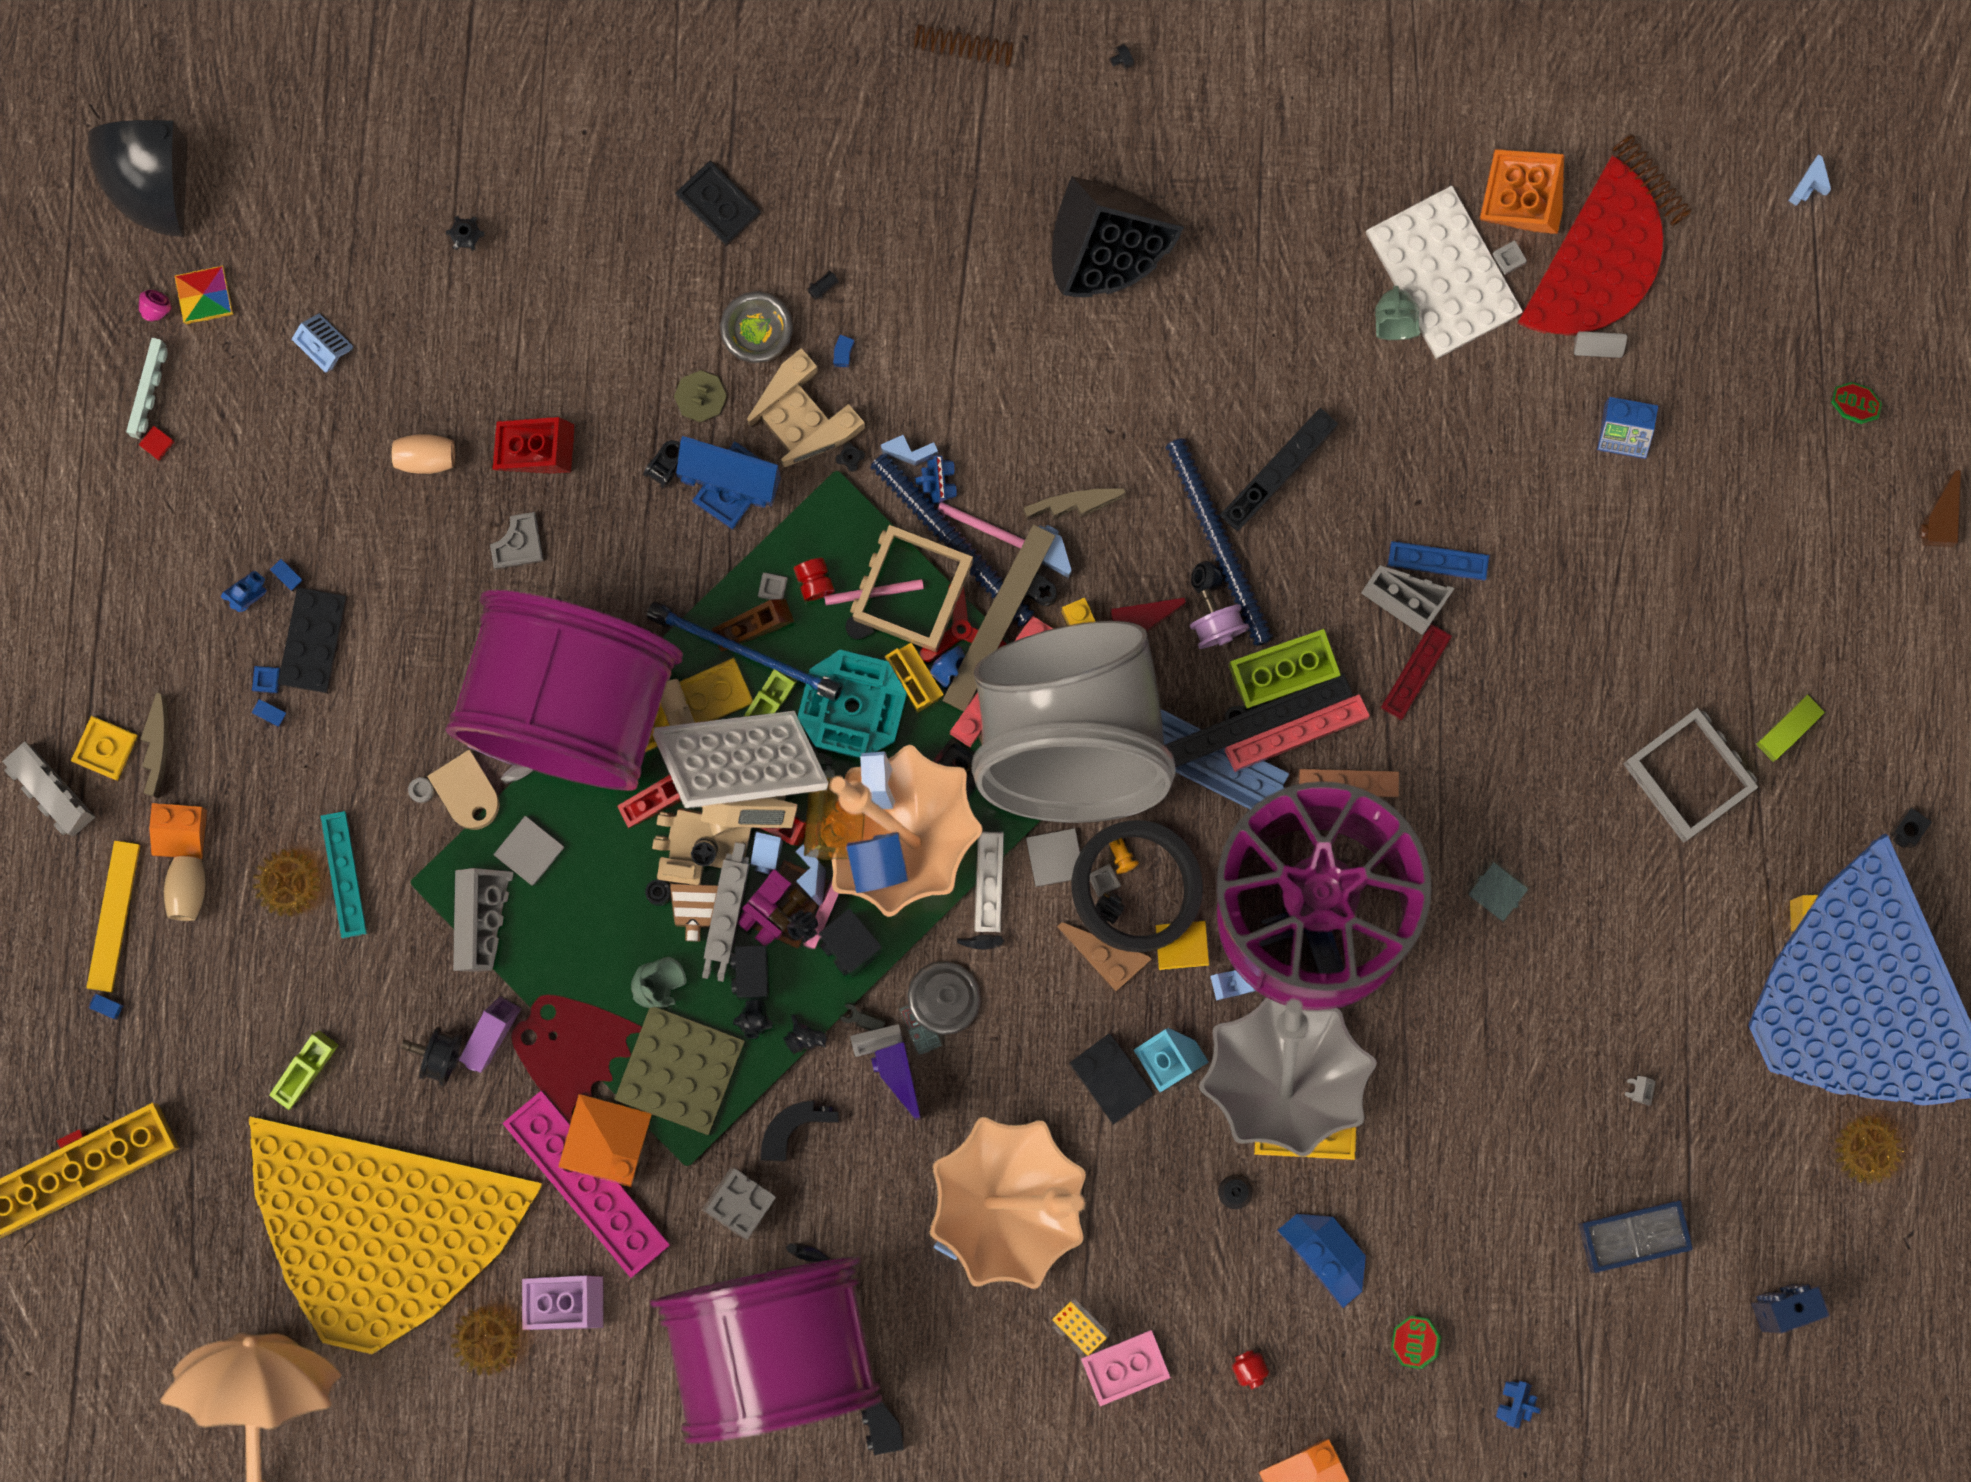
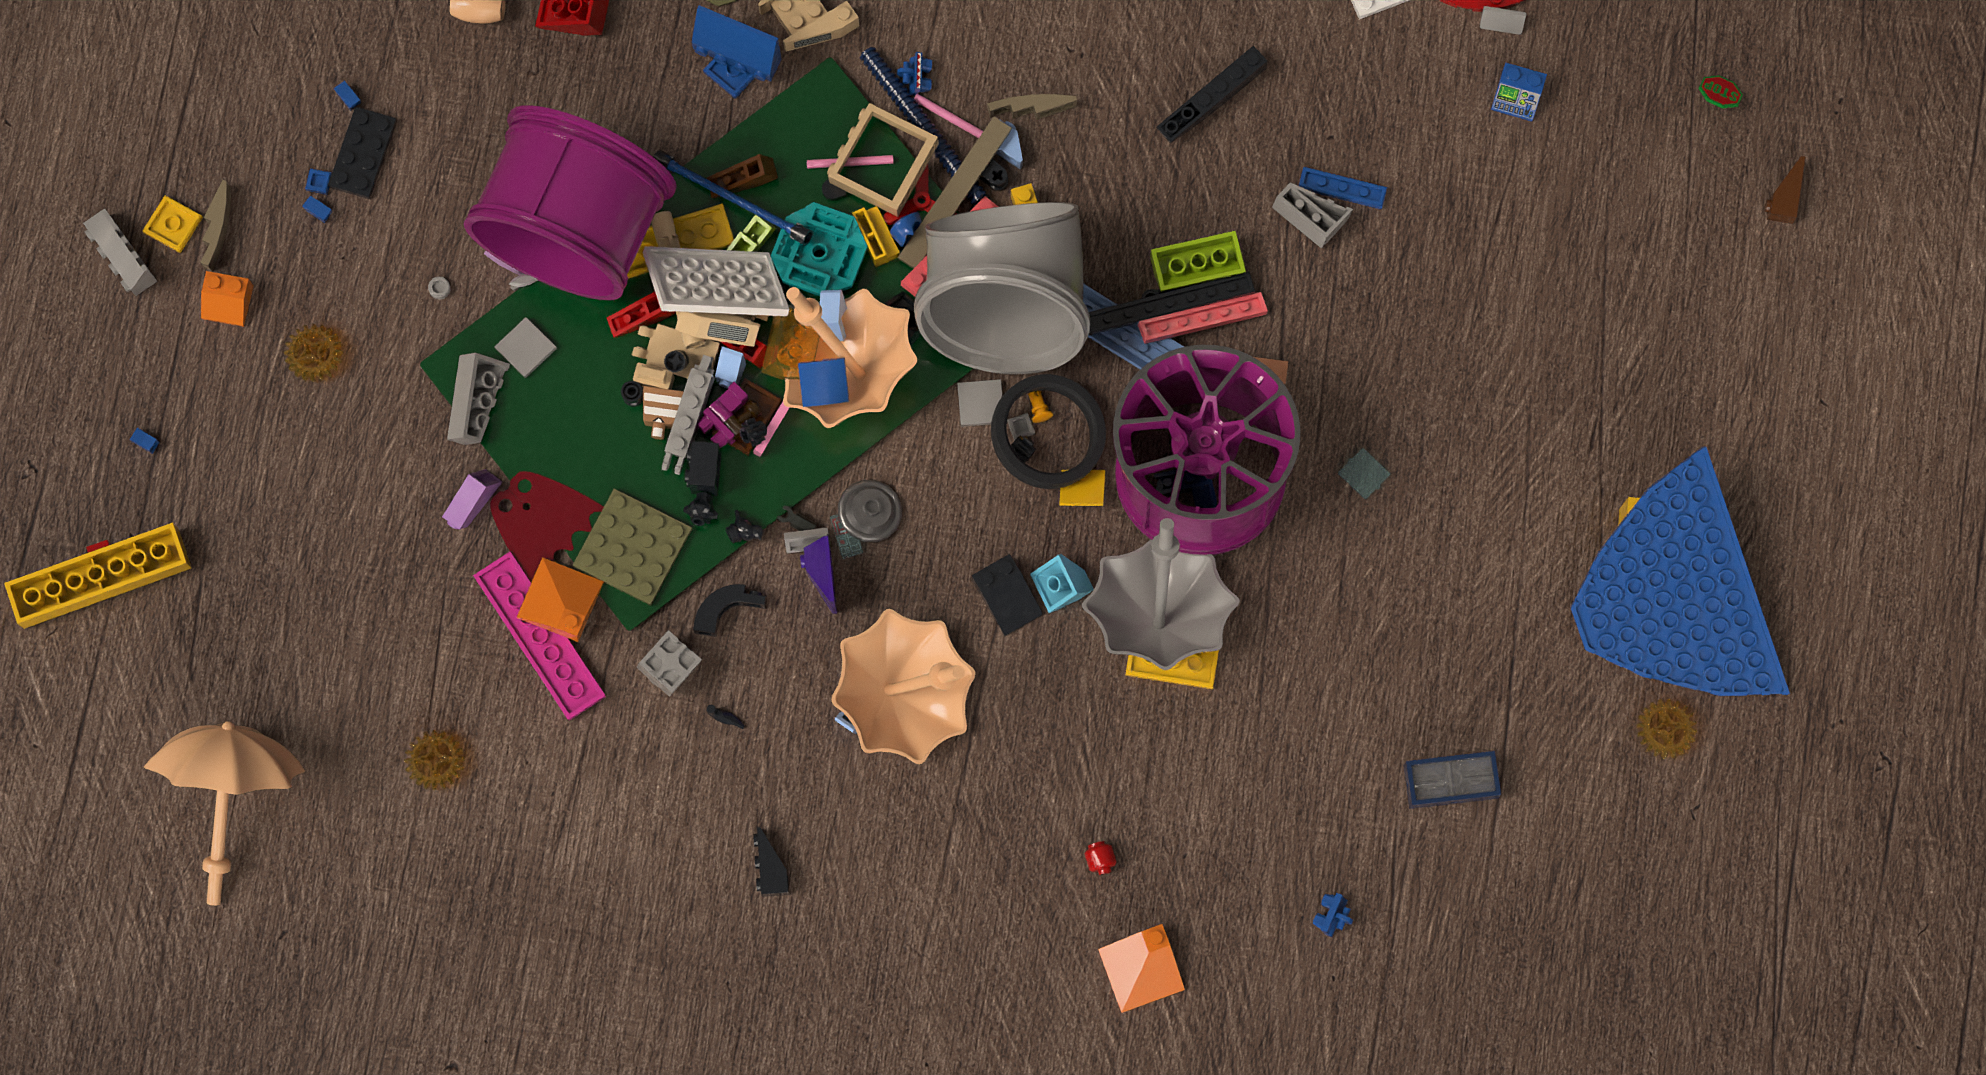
camera: 10 degrees right, 5 degrees down
(113, 916) = (161, 366): yellow tile -> none
(184, 888) = (225, 347): tan piece -> none
(245, 591) = (309, 104): blue hips -> none
(303, 1069) = (307, 512): lime slope -> none
(343, 874) = (363, 351): teal plate -> none
(375, 1231) = (351, 657): yellow piece -> none
(439, 1055) = (424, 511): black wheel -> none
(466, 789) = (476, 291): tan tile -> none
(519, 545) = (551, 90): light grey tile -> none
(562, 1303) = (506, 734): lavender slope -> none
(655, 981) = (621, 467): sand green helmet -> none
(663, 465) = (680, 38): black piece -> none
(769, 1350) = (677, 780): magenta wheel -> none
(772, 587) = (763, 146): light grey tile -> none
(814, 581) = (799, 144): red wheel -> none
(814, 879) = (768, 394): light blue slope -> none
(848, 449) = (837, 48): black plate -> none
(849, 944) = (792, 451): black piece -> none
(900, 450) = (886, 45): light blue slope -> none
(981, 942) = (909, 468): black bar -> none
(989, 882) = (920, 416): white tile -> none
(1079, 1327) = (955, 804): slope -> none
(1112, 964) = (1019, 497): medium nougat wing -> none
(1125, 1368) = (991, 845): bright pink plate -> none
(1147, 614) = (1089, 204): dark red slope -> none
(1206, 576) = (1139, 179): black cone -> none
(1219, 541) = (1155, 157): dark blue piece -> none
(1219, 625) = (1144, 218): lavender wheel -> none
(1229, 985) = (1120, 527): light blue slope -> none
(1231, 1184) = (1106, 711): black cone -> none
(1327, 1253) = (1180, 767): blue wedge -> none
(1416, 672) = (1312, 279): dark red tile -> none
(1416, 1342) = (1249, 850): piece -> none
(1643, 1090) = (1473, 655): light grey tile -> none
(1660, 800) = (1514, 410): light grey window -> none
(1790, 728) = (1634, 360): lime slope -> none
(1790, 1308) = (1580, 852): dark blue brick -> none
(1919, 824) = (1735, 449): black brick -> none

